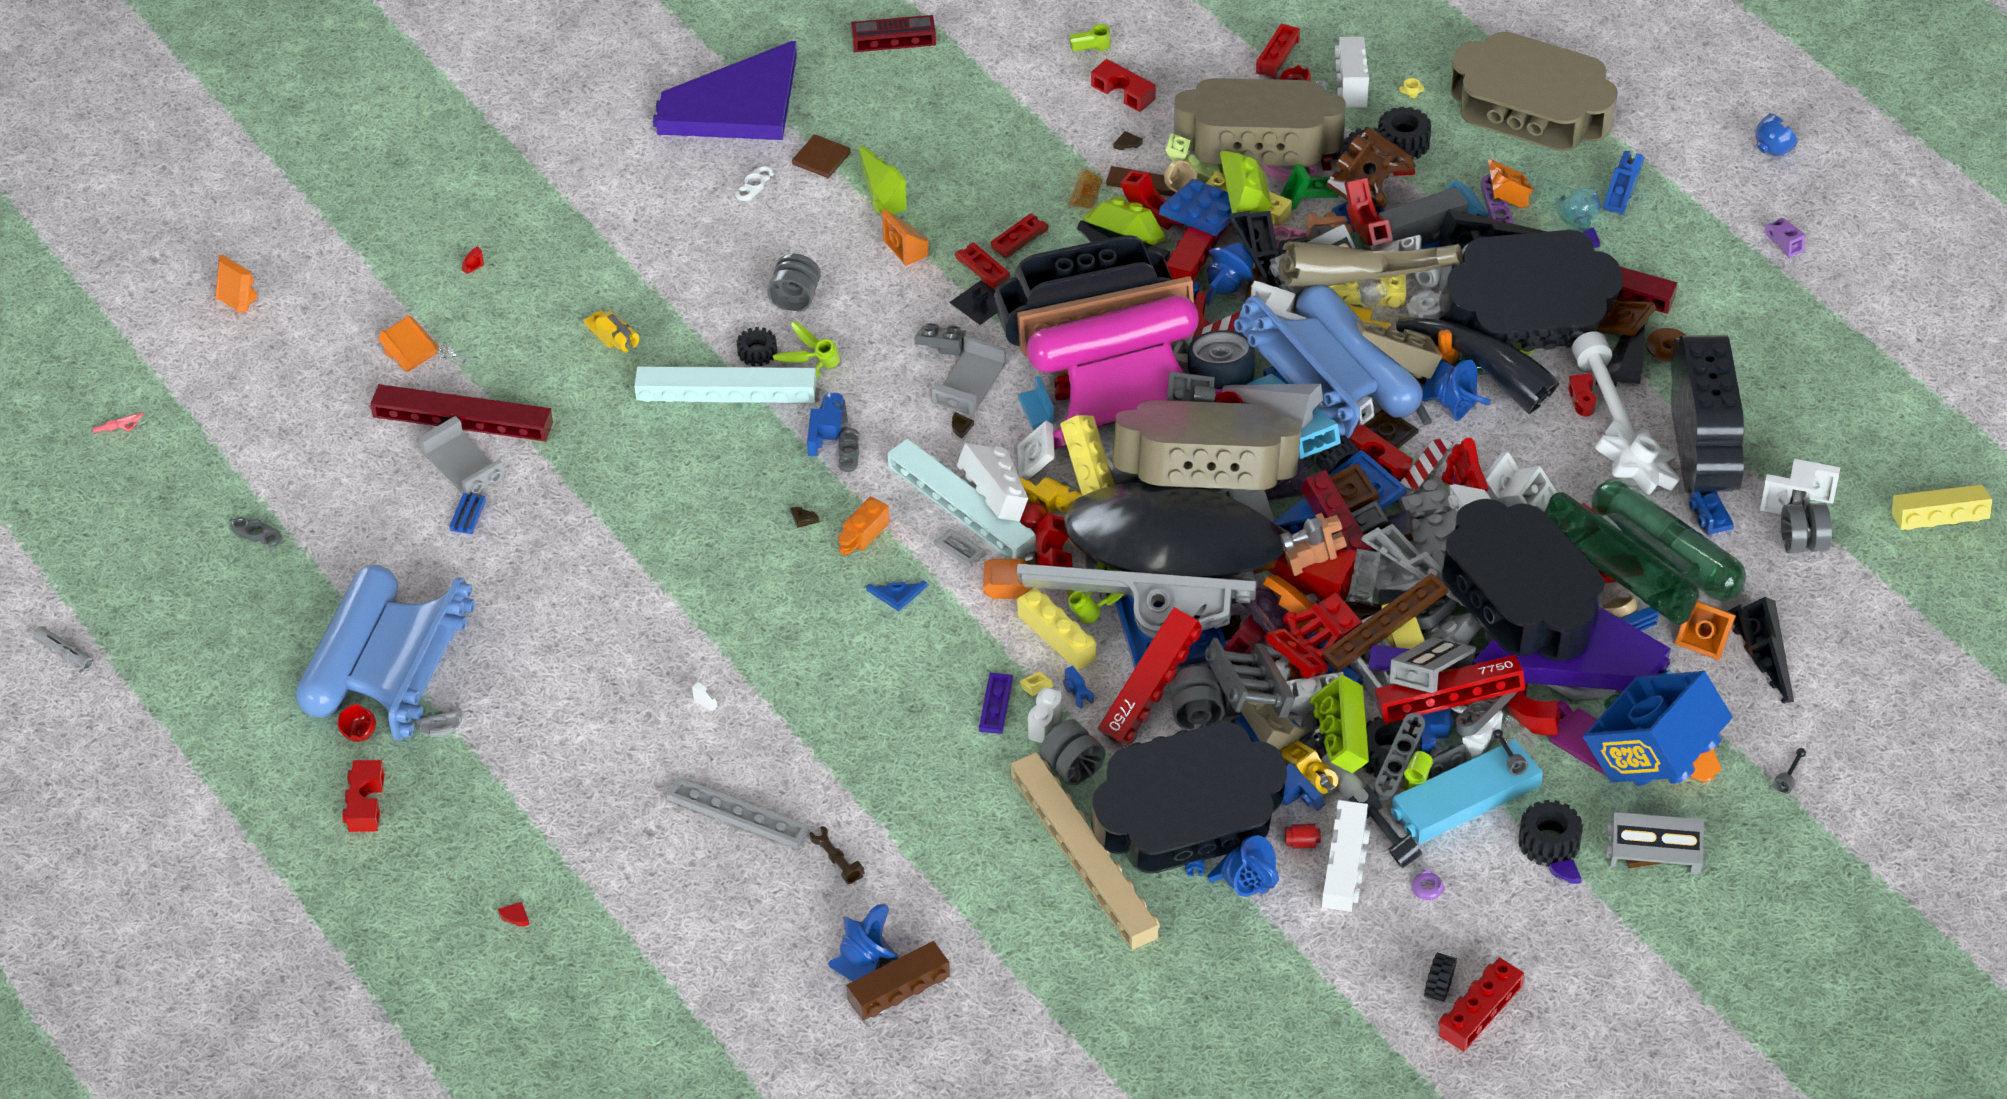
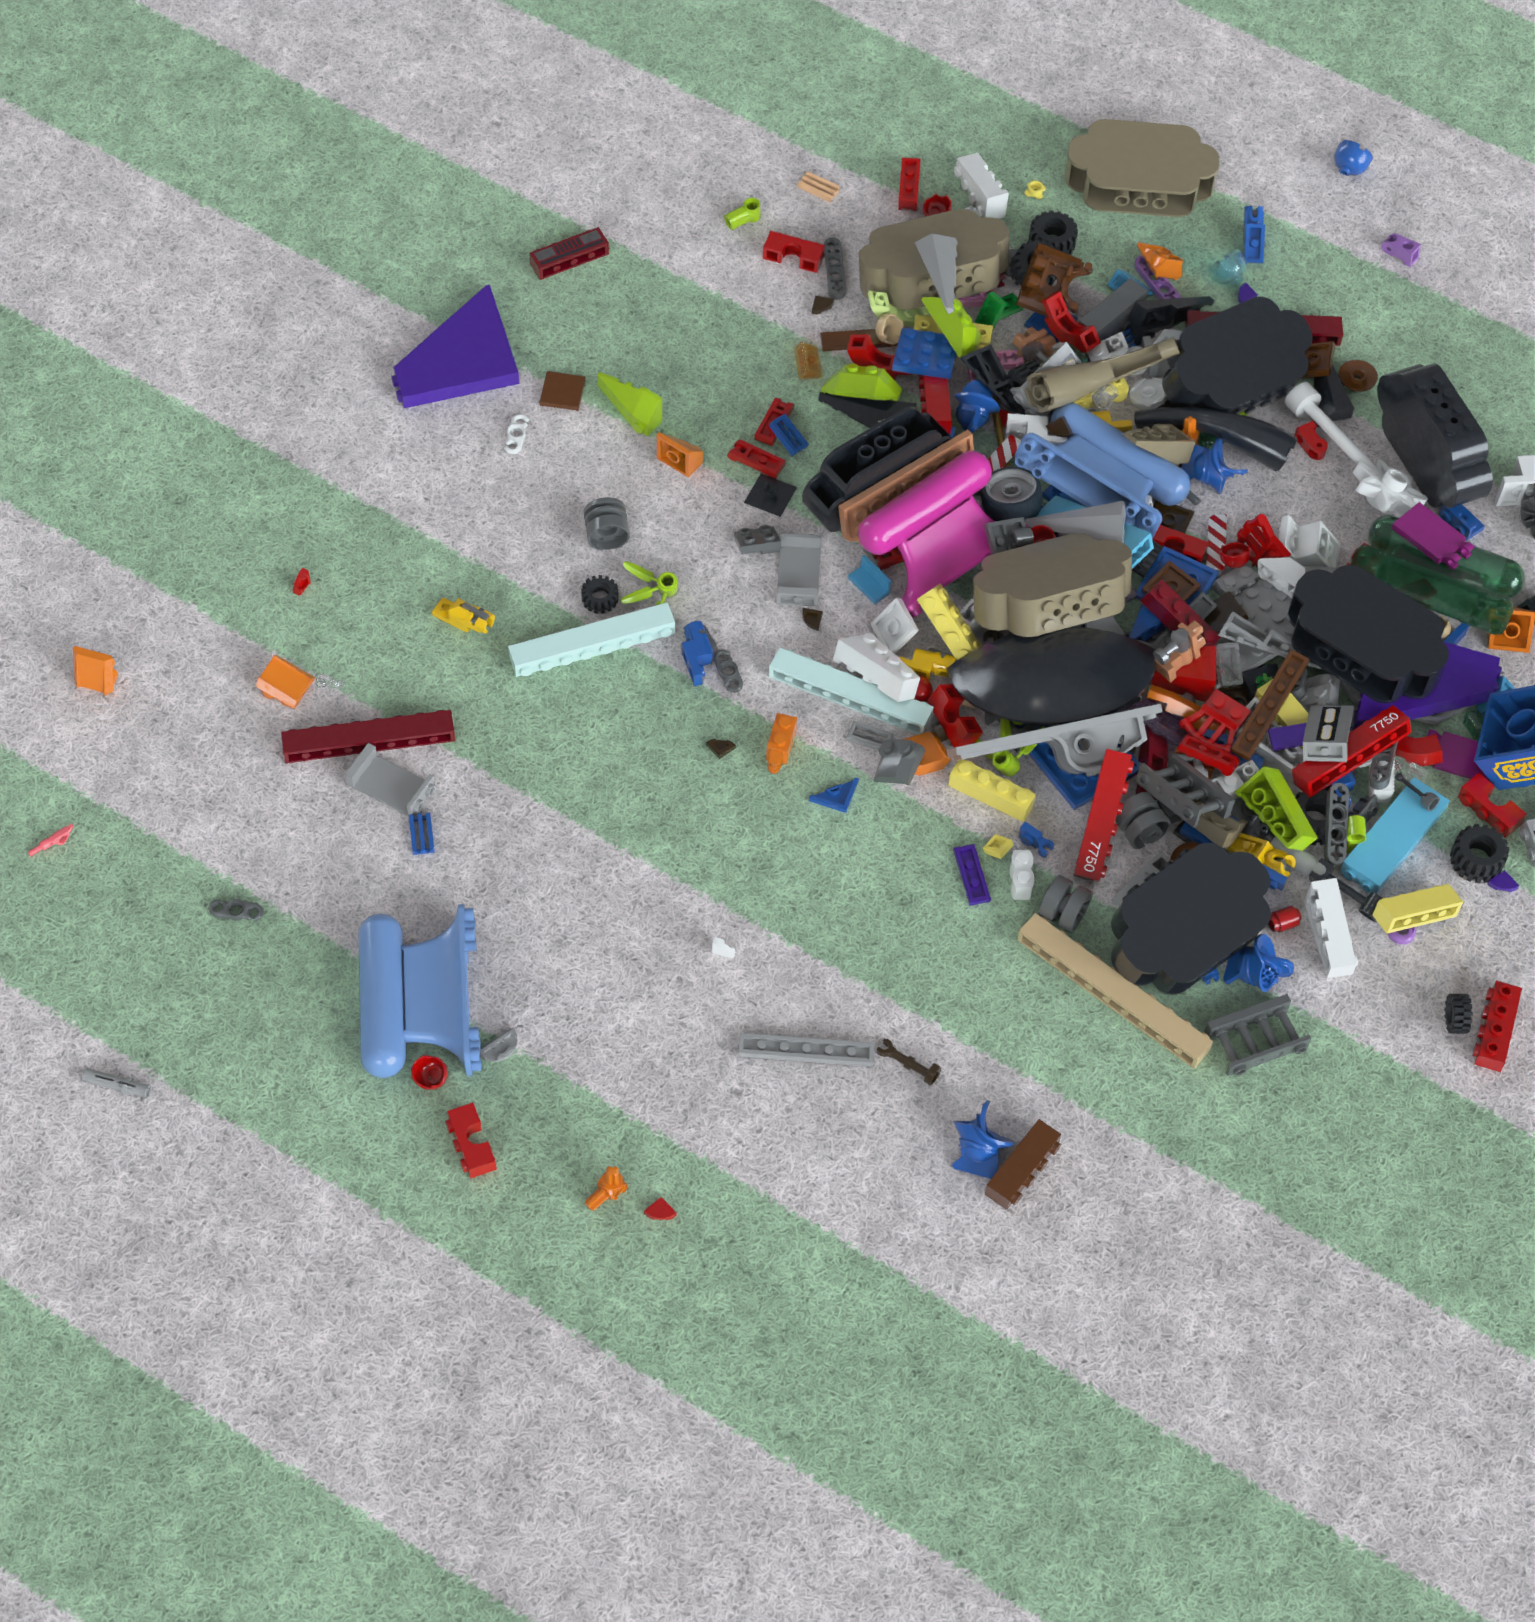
camera: 25 degrees left, 10 degrees up
(476, 876) = (609, 1187): none -> orange axle
(972, 574) = (898, 761): none -> dark grey slope
(1015, 245) = (786, 437): none -> blue tile
(1161, 112) = (834, 268): none -> dark grey beam
(1186, 30) = (819, 184): none -> light nougat tile
(1213, 915) = (1258, 1014): none -> dark grey fence
(1248, 120) = (939, 258): none -> light grey wedge
(1301, 305) = (1060, 427): none -> dark brown tile
(1432, 477) = (1235, 554): none -> red hair
(1448, 863) = (1417, 908): none -> light yellow brick
(1581, 776) = (1476, 796): none -> red arch
(1652, 508) = (1432, 536): none -> magenta tile

